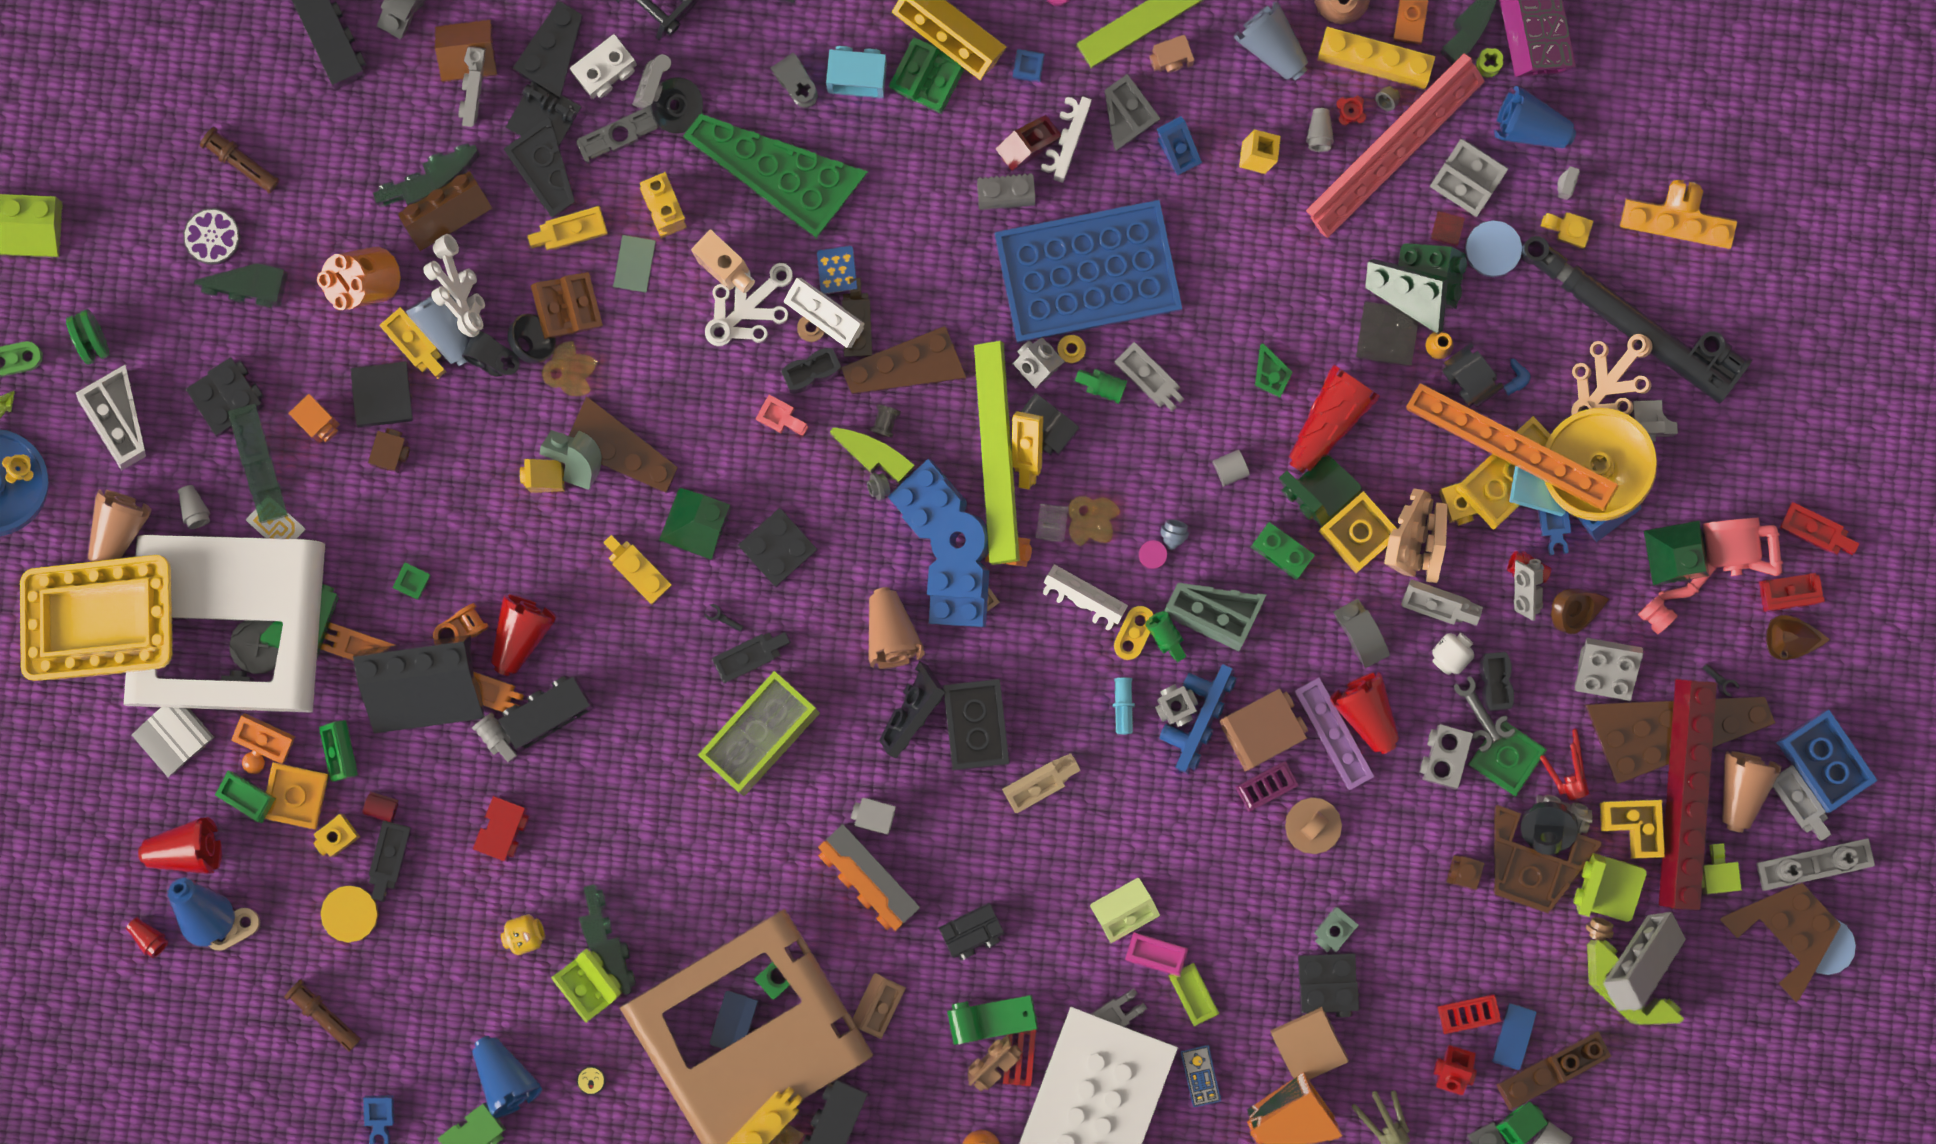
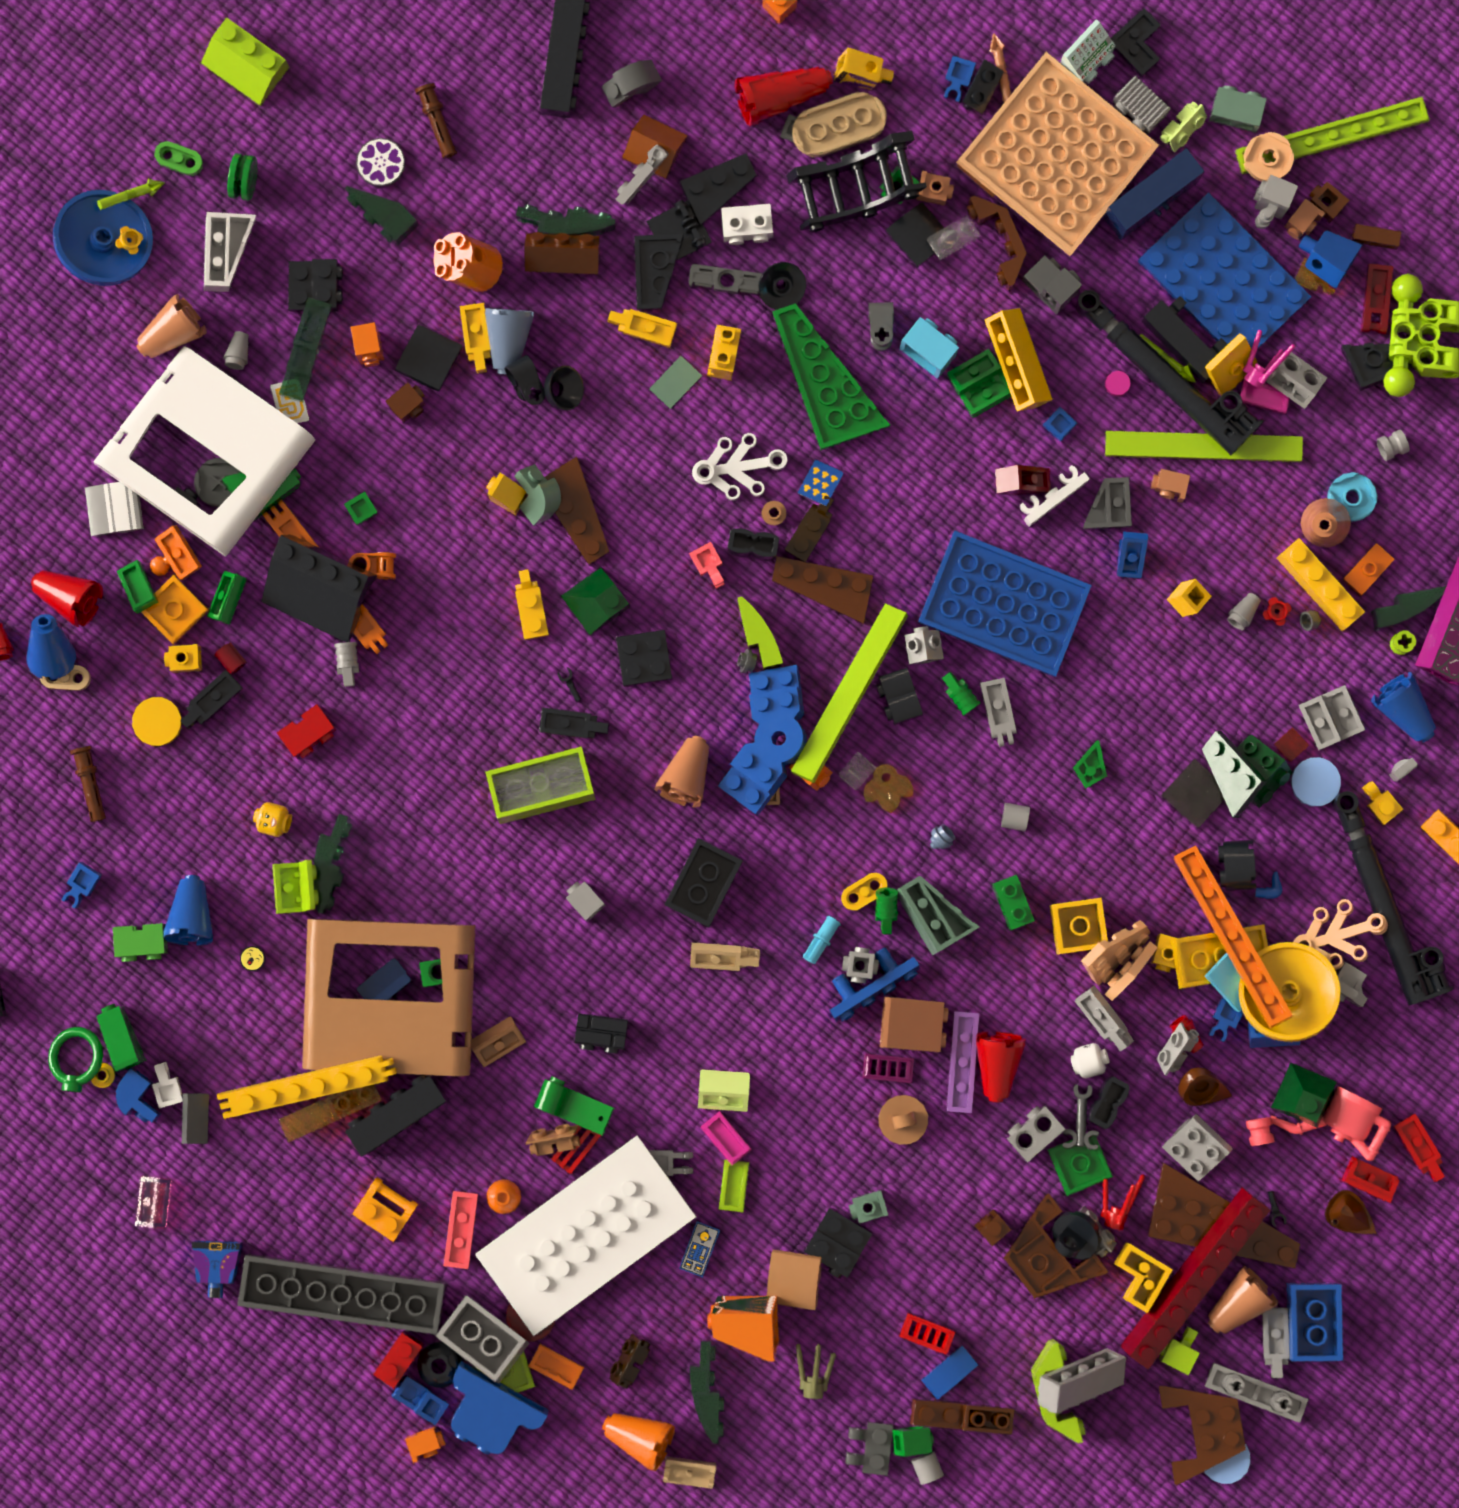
camera: 30 degrees right, 0 degrees up
(96, 618) = (114, 386): yellow wedge -> none
(457, 285) = (535, 316): white plant -> none
(518, 632) = (413, 597): red cone -> none
(545, 712) = (395, 668): black brick -> none
(566, 305) = (605, 380): dark orange slope -> none
(573, 368) = (580, 429): clear yellow plate -> none
(649, 87) = (769, 260): light grey plate -> none
(722, 262) = (740, 422): light nougat torso -> none
(824, 312) = (790, 508): white plate -> none
(868, 876) = (551, 942): piece -> none
(885, 421) = (783, 616): clear smoke bush -> none
(918, 704) = (672, 839): black wing -> none
(1006, 191) = (982, 506): flat silver brick -> none
(1027, 447) = (874, 703): yellow hinge -> none
(1075, 357) = (955, 660): yellow plate -> none
(1084, 595) = (845, 840): white plate -> none
(1152, 554) = (915, 843): dark pink tile -> none
(1274, 42) = (1252, 524): sand blue cone -> none
(1322, 490) = (1071, 876): dark green bracket -> none
(1332, 416) = (1115, 827): red cone -> none
(1362, 633) = (1032, 1001): dark grey brick -> none
(1395, 146) = (1292, 658): coral plate -> none
(1437, 351) = (1224, 831): light orange cone -> none
(1455, 1070) = (889, 1368): red brick -> none
(1600, 929) = (1065, 1335): medium nougat plate -> none
(1609, 888) = (1092, 1309): lime bracket -> none

